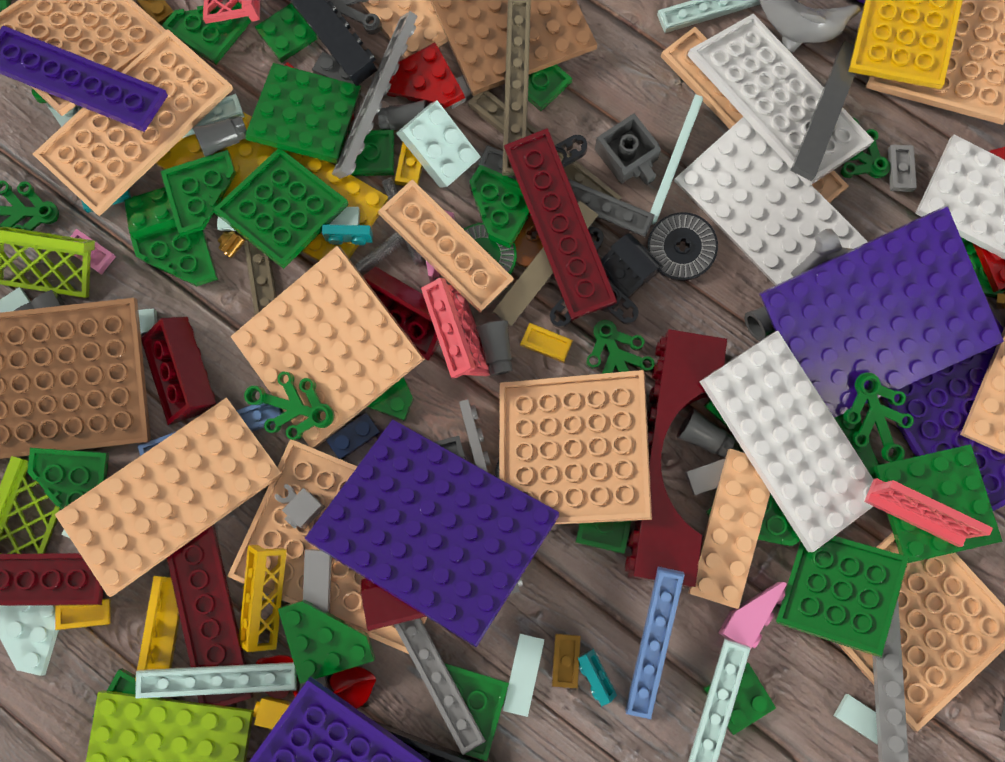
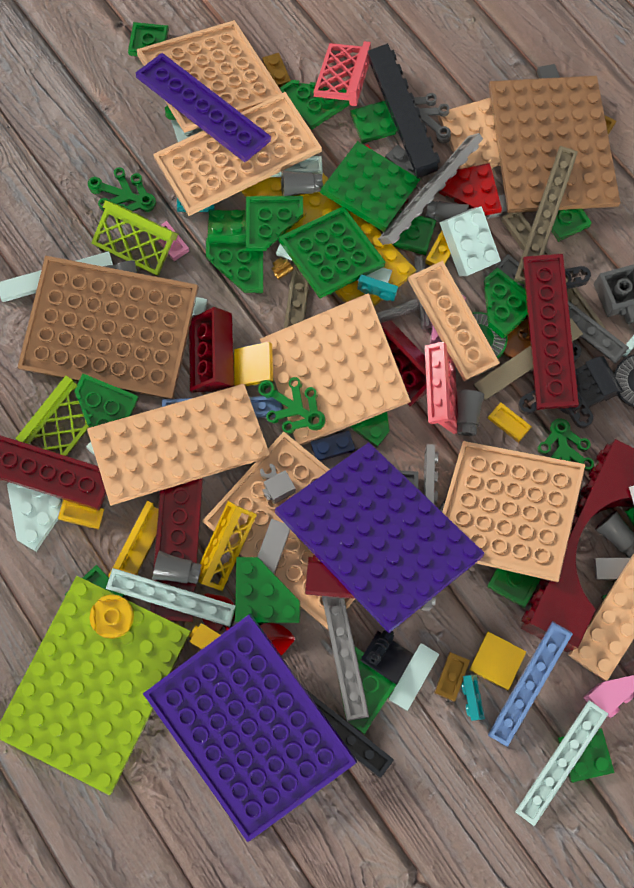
camera: 15 degrees right, 5 degrees down
(153, 728) = (111, 616): none -> yellow tile
(211, 646) = (176, 569): none -> dark grey plant
(231, 370) = (253, 364): none -> yellow tile
(486, 665) = (387, 656): none -> black hinge
(611, 624) = (497, 661): none -> yellow tile

